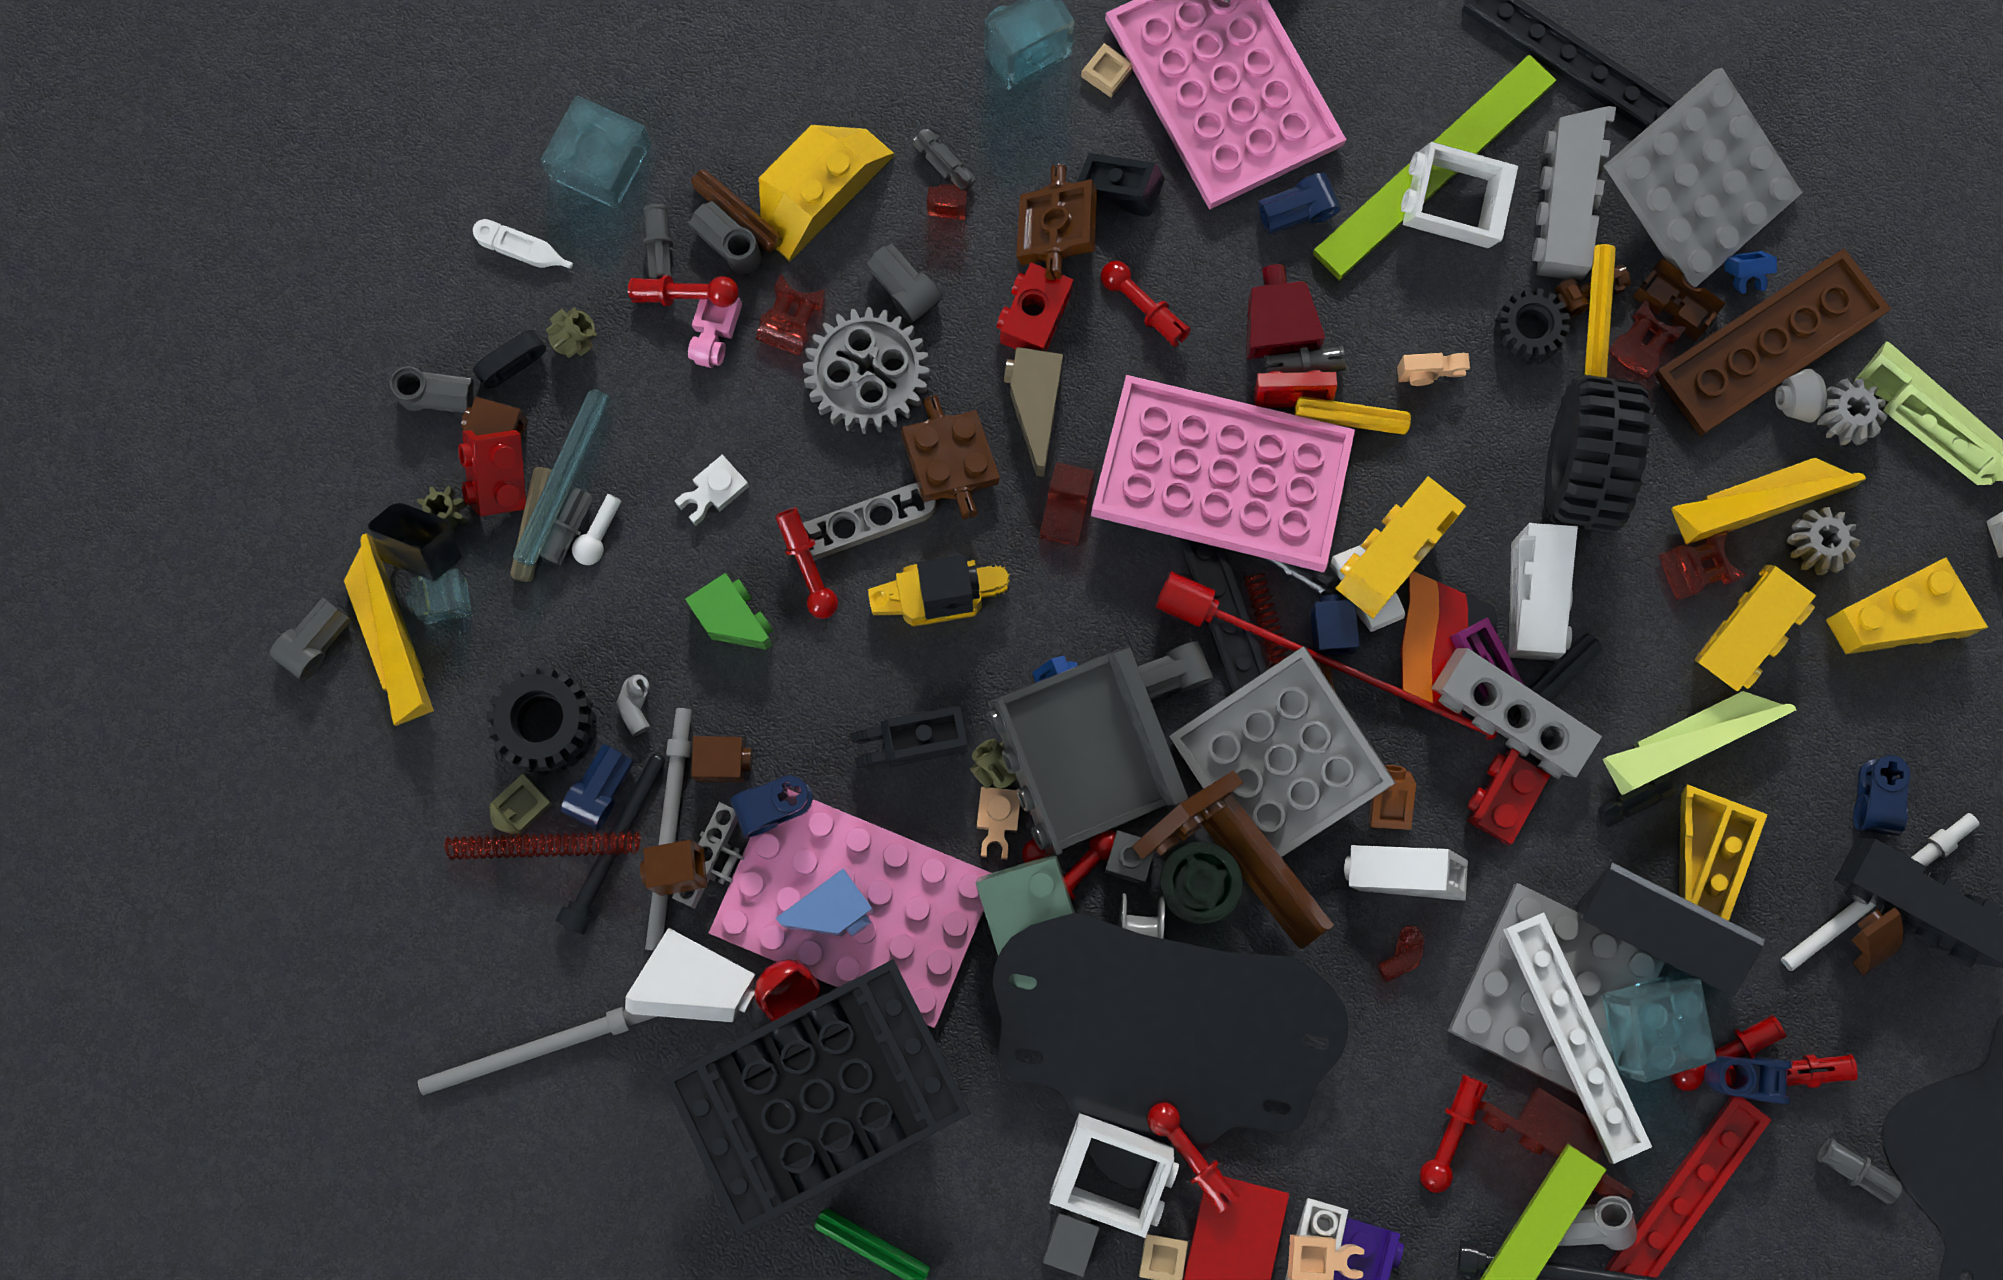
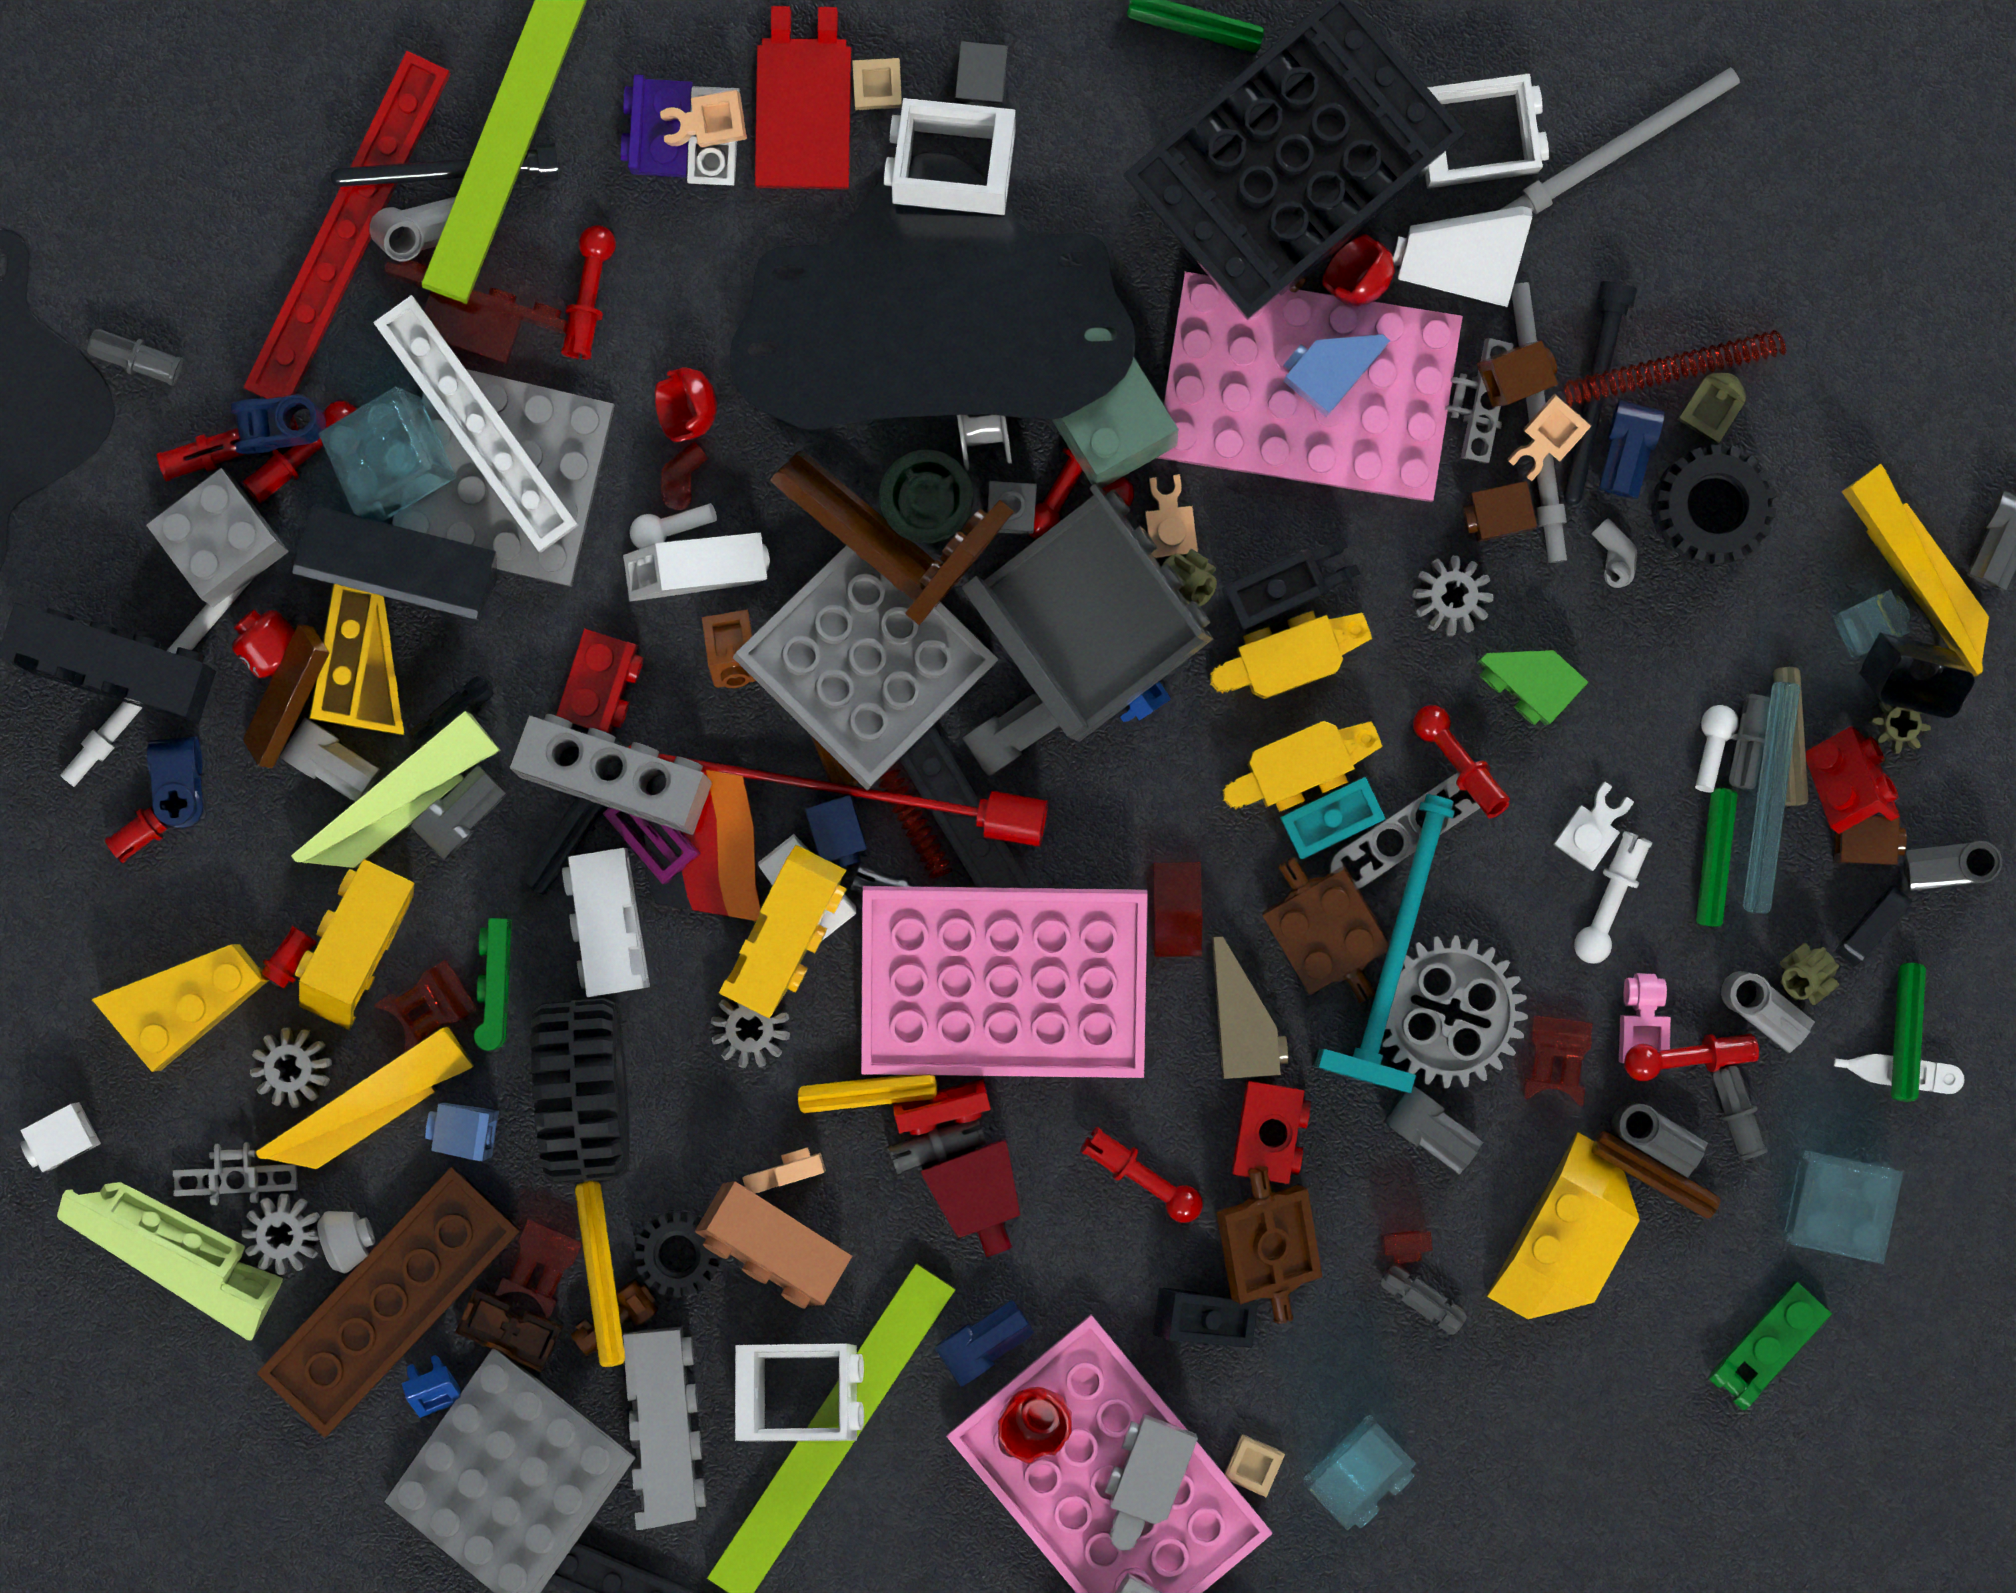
camera: 170 degrees right, 10 degrees up
(505, 271) = (1908, 1032): none -> green axle
(608, 1067) = (1533, 143): none -> white window
(613, 314) = (1769, 1011): none -> light grey piece
(619, 443) = (1716, 857): none -> green axle
(658, 814) = (1553, 431): none -> light nougat plate
(682, 68) = (1770, 1344): none -> green plate
(736, 401) = (1594, 942): none -> white pin
(763, 806) = (1433, 466): dark blue piece -> none
(790, 706) = (1438, 589): none -> light grey gear
(922, 542) = (1332, 818): none -> teal plate
(924, 681) = (1293, 656): none -> yellow hinge
(946, 337) = (1366, 1060): none -> teal tile
(948, 586) = (1290, 755): black brick -> none
(1165, 1121) = (908, 228): red pin -> none
(1194, 67) = (1149, 1477): none -> light grey hinge
(1277, 125) = (1034, 1424): none -> red hair
(1389, 1013) = (685, 404): none -> red hair
(1438, 914) = (651, 529): none -> white bar
(1442, 473) = (751, 1044): none -> light grey gear
(1457, 308) = (772, 1245): none -> nougat brick
(1641, 569) = (494, 986): none -> green plate
(1652, 711) = (452, 819): none -> dark grey piece
(1690, 455) = (462, 1131): none -> medium blue slope
(1748, 782) = (322, 756): none -> light grey piece
(1781, 841) = (285, 696): none -> reddish brown tile
(1786, 893) = (262, 641): none -> red head
(1810, 631) = (287, 957): none -> red pin
(1816, 992) = (217, 538): none -> light grey piece
(1878, 939) = (160, 610): reddish brown slope -> none
(1902, 471) = (249, 1172): none -> light grey piece
(1925, 759) = (136, 834): none -> red pin

